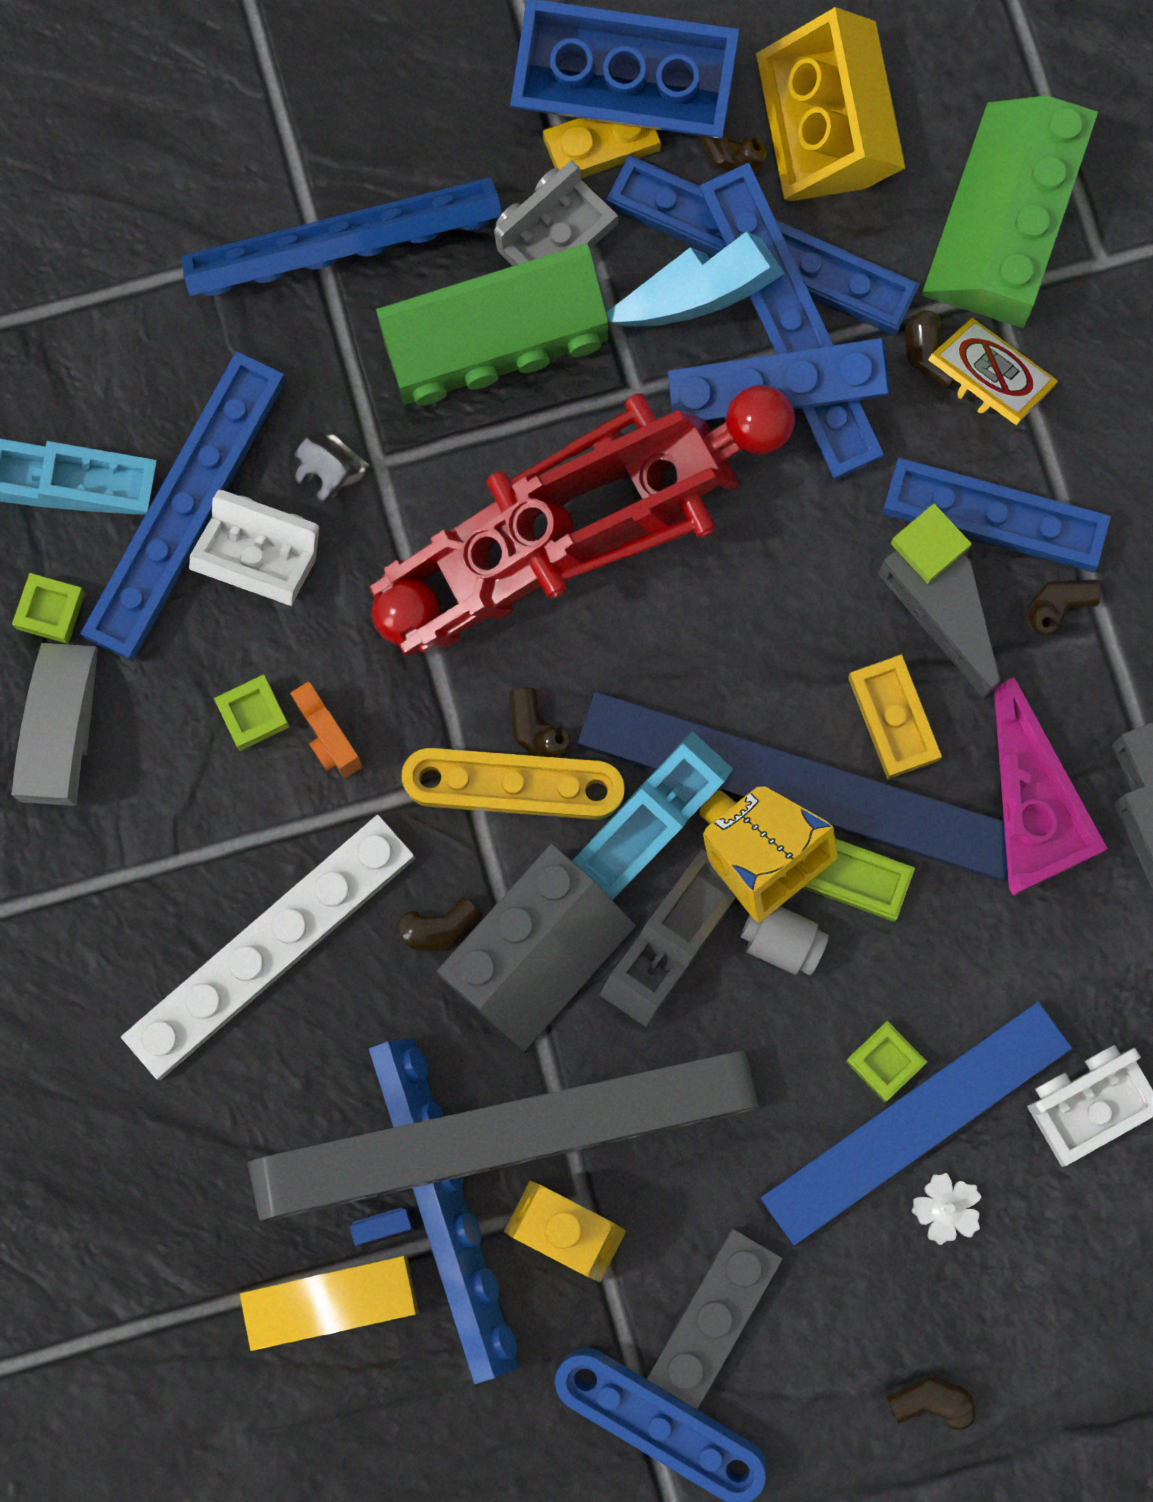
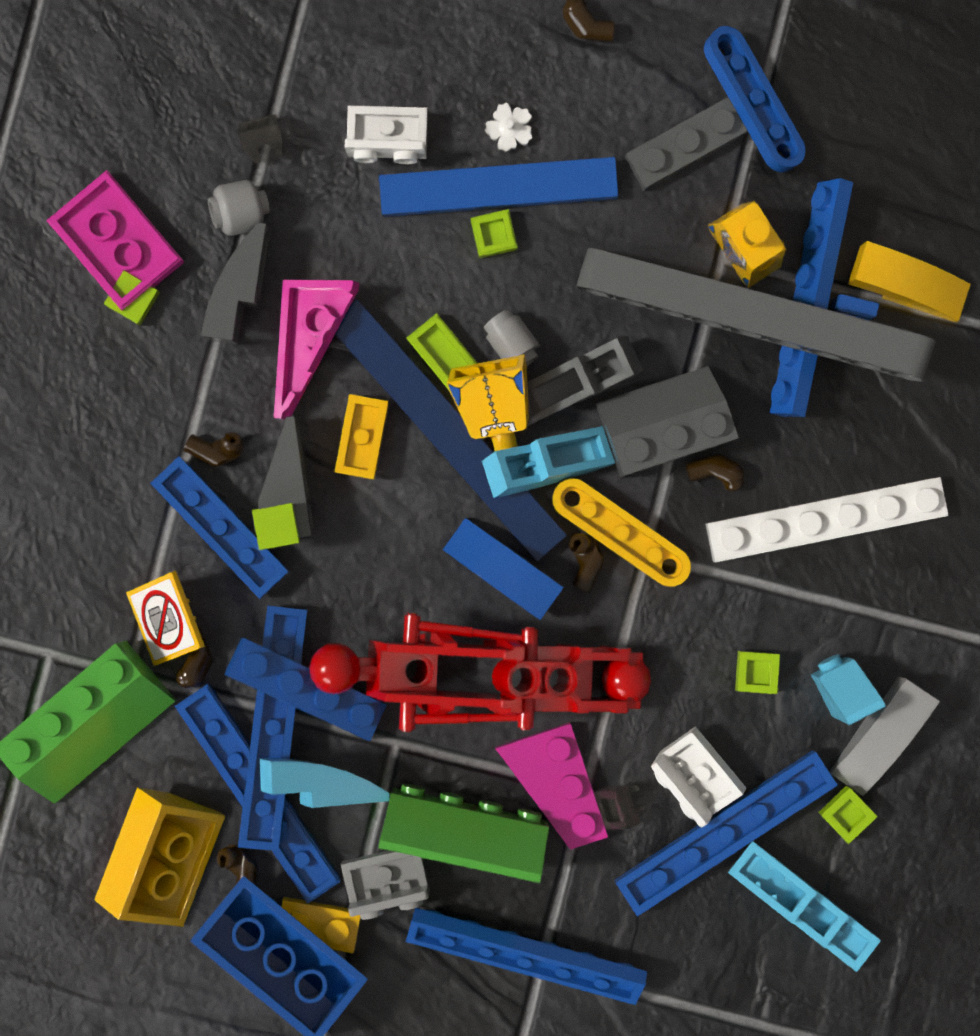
camera: 155 degrees left, 10 degrees up
(132, 747) = (846, 689): none -> medium azure slope
(331, 744) = (719, 622): orange plate -> none
(418, 453) = (557, 781): none -> dark pink wing
(629, 657) = (503, 569): none -> blue slope

